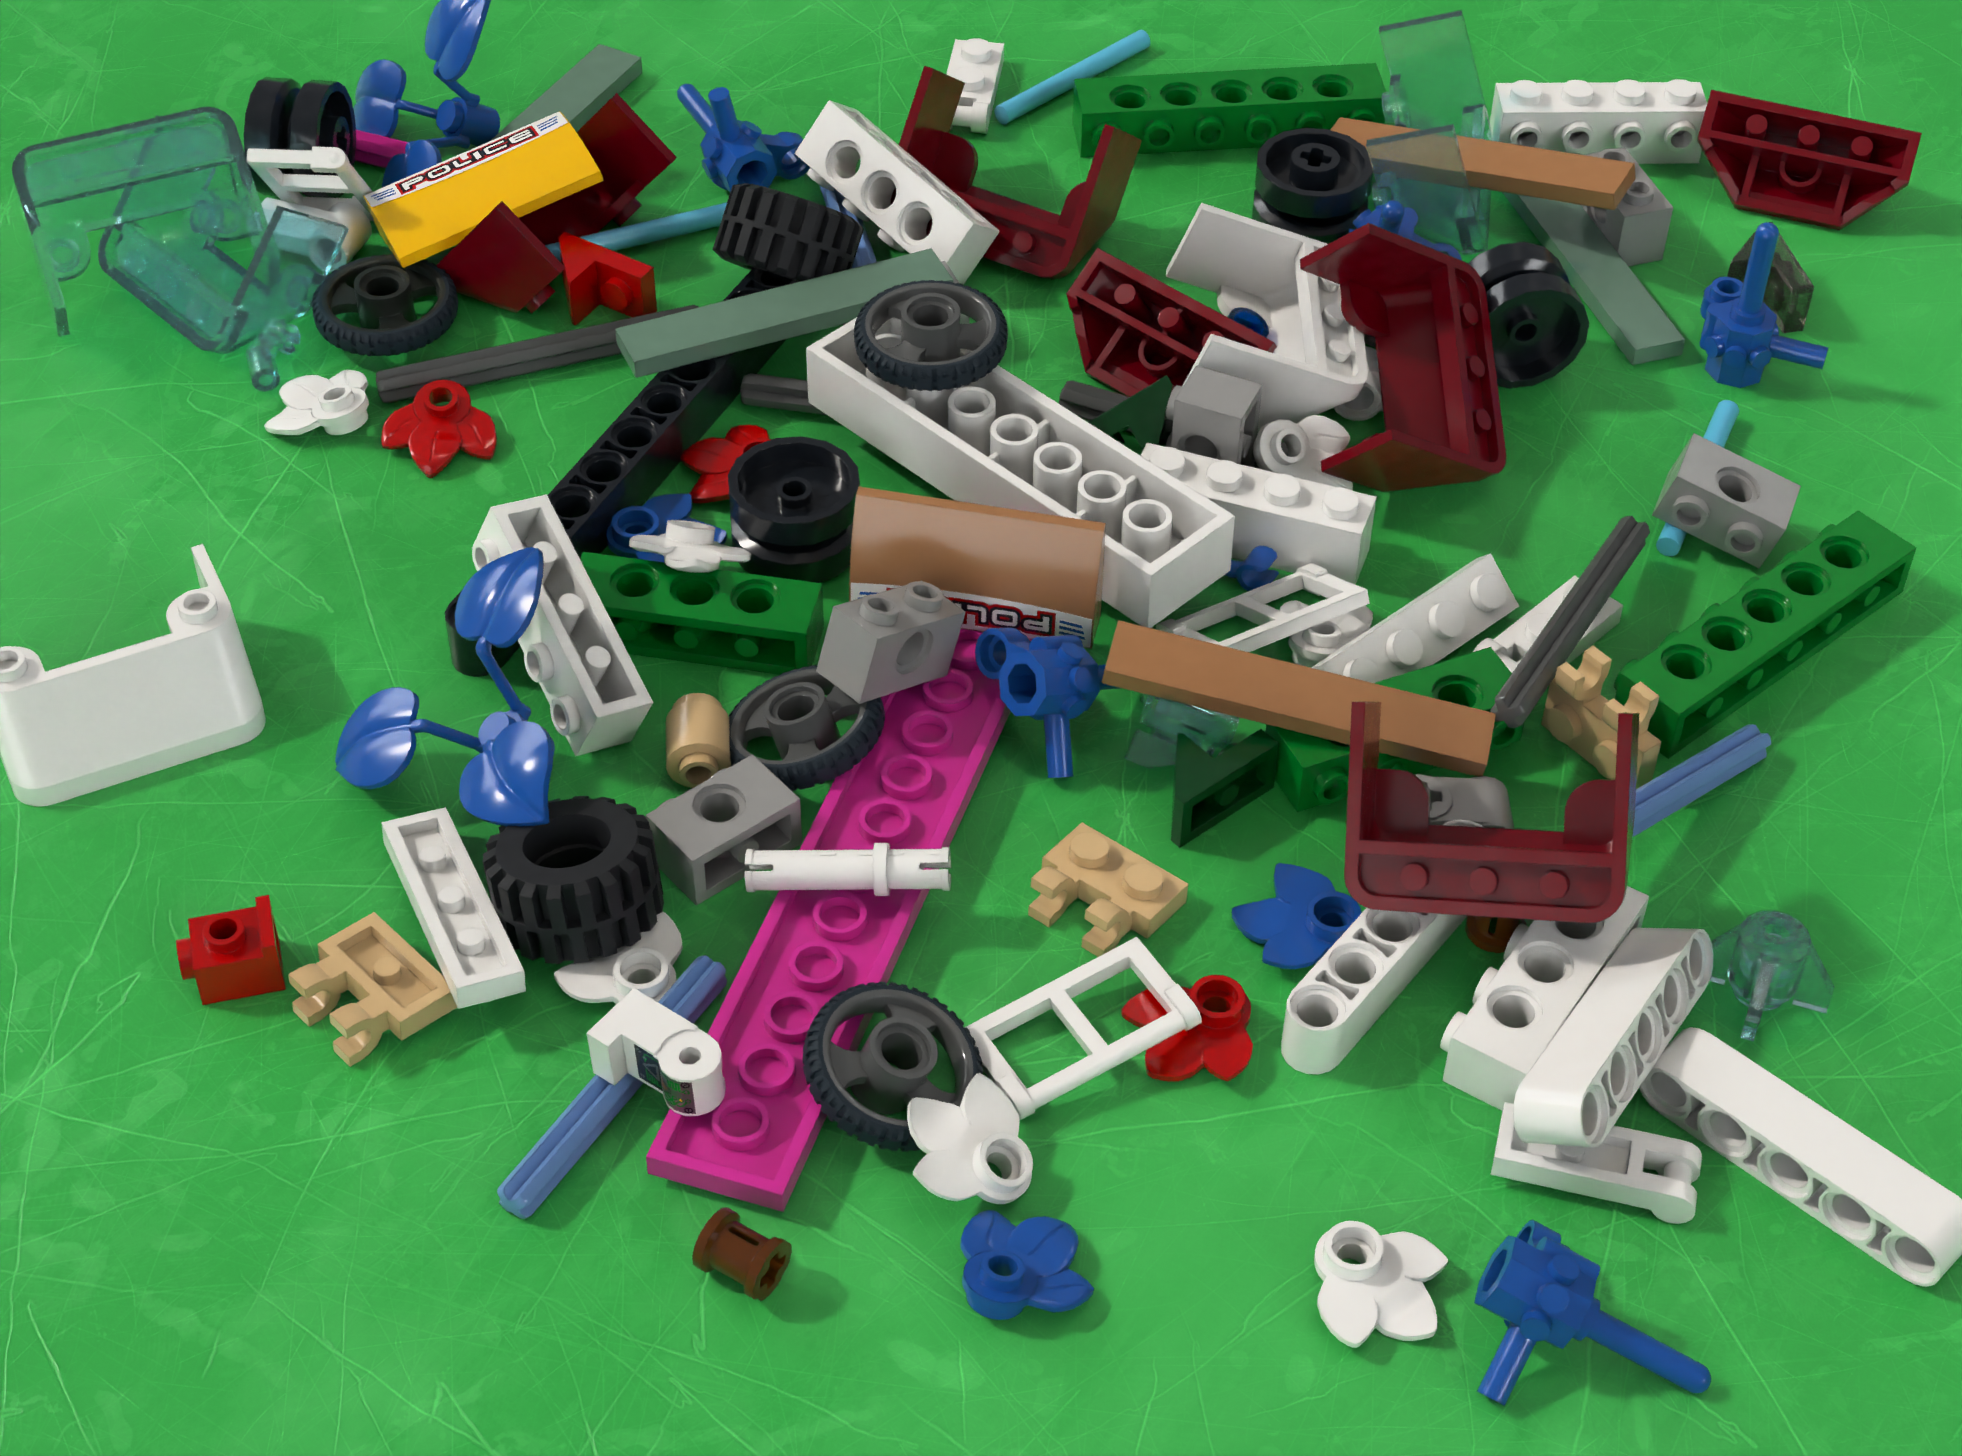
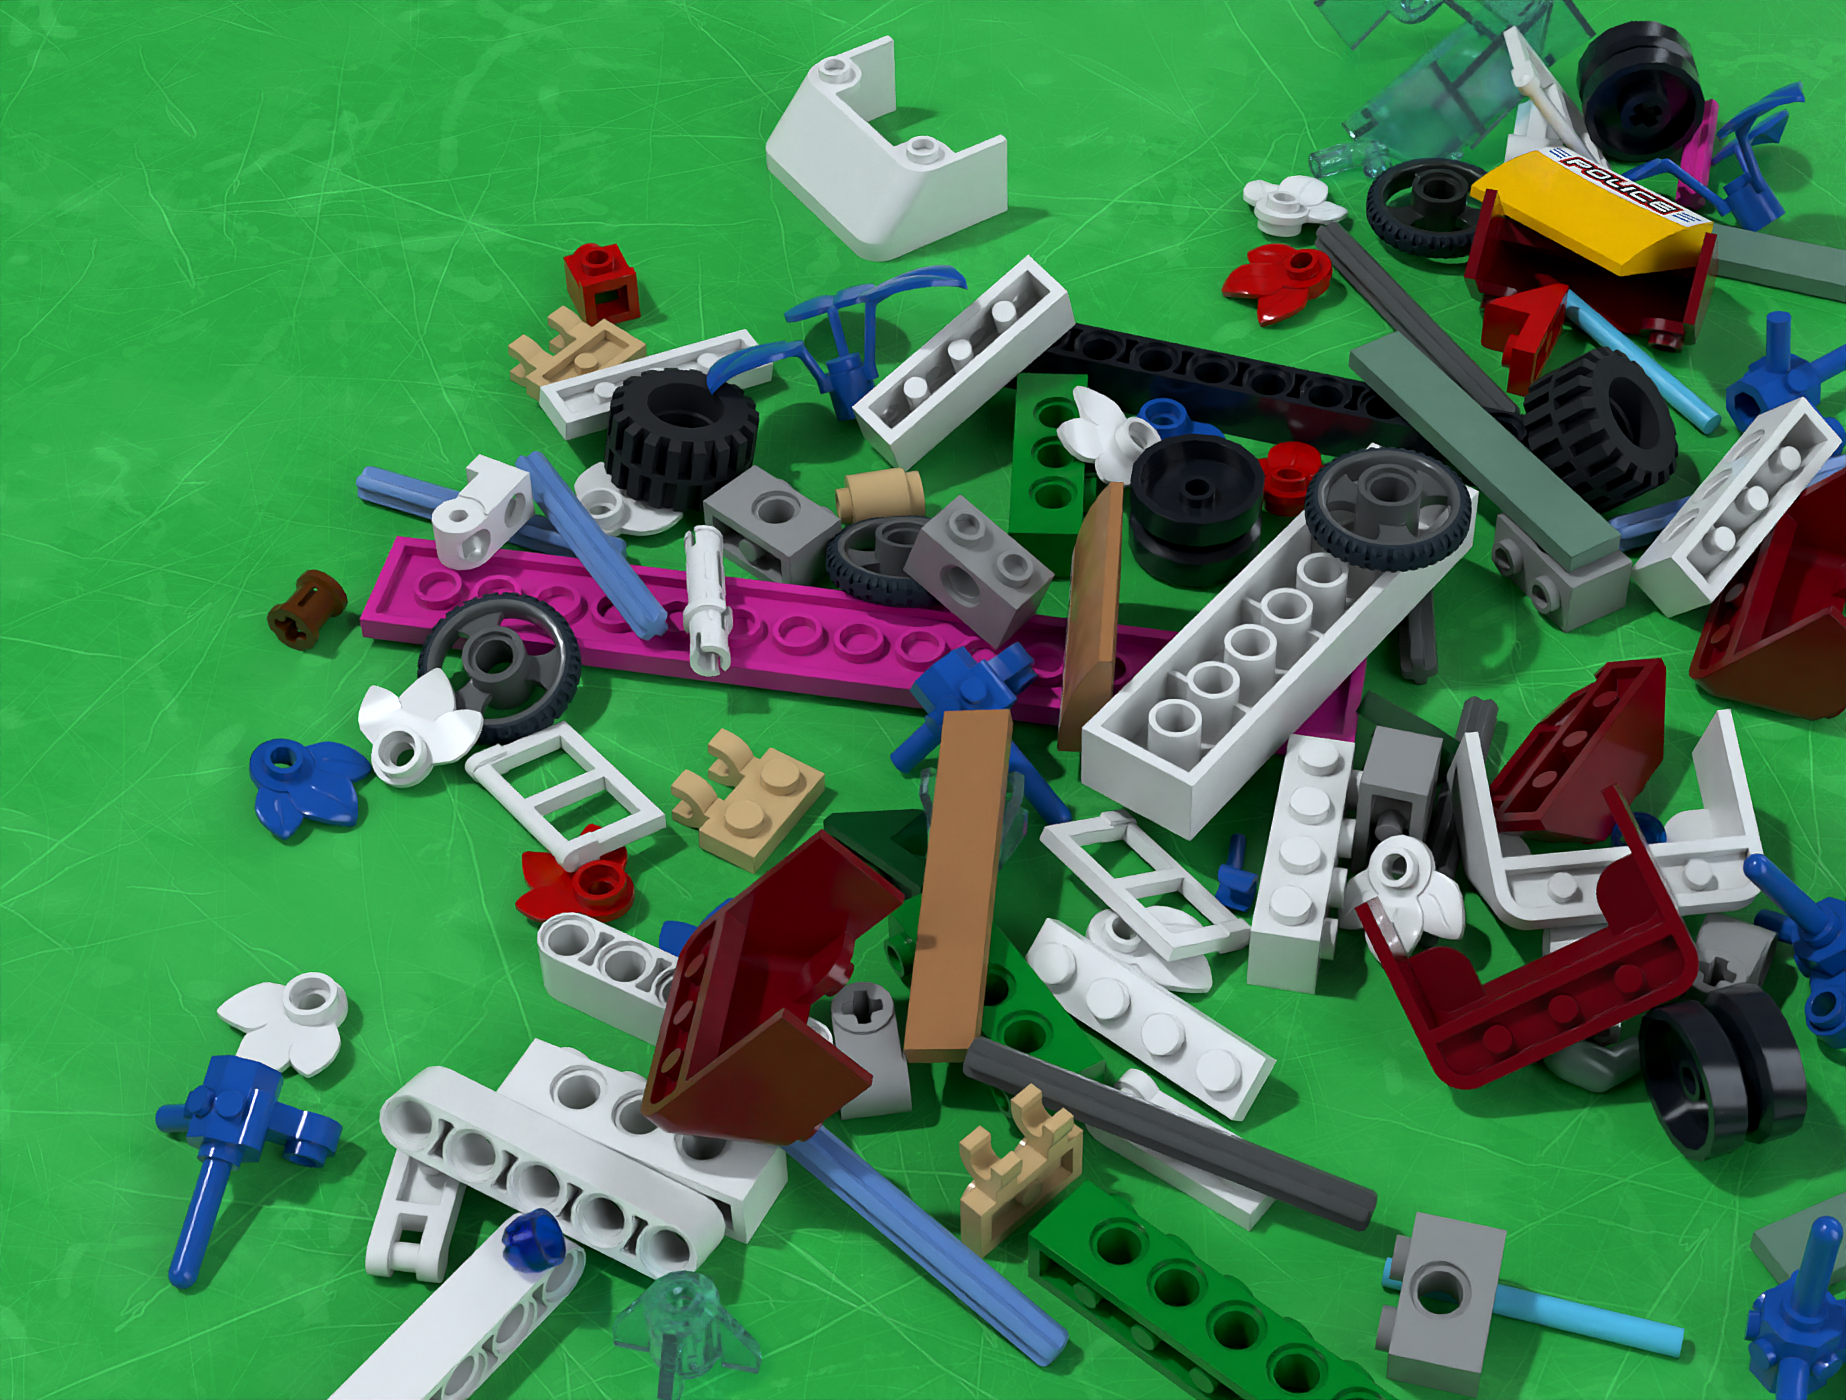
camera: 85 degrees right, 0 degrees up
(734, 962) = (594, 548): none -> medium blue axle
(1717, 1037) = (534, 1242): none -> clear blue hinge

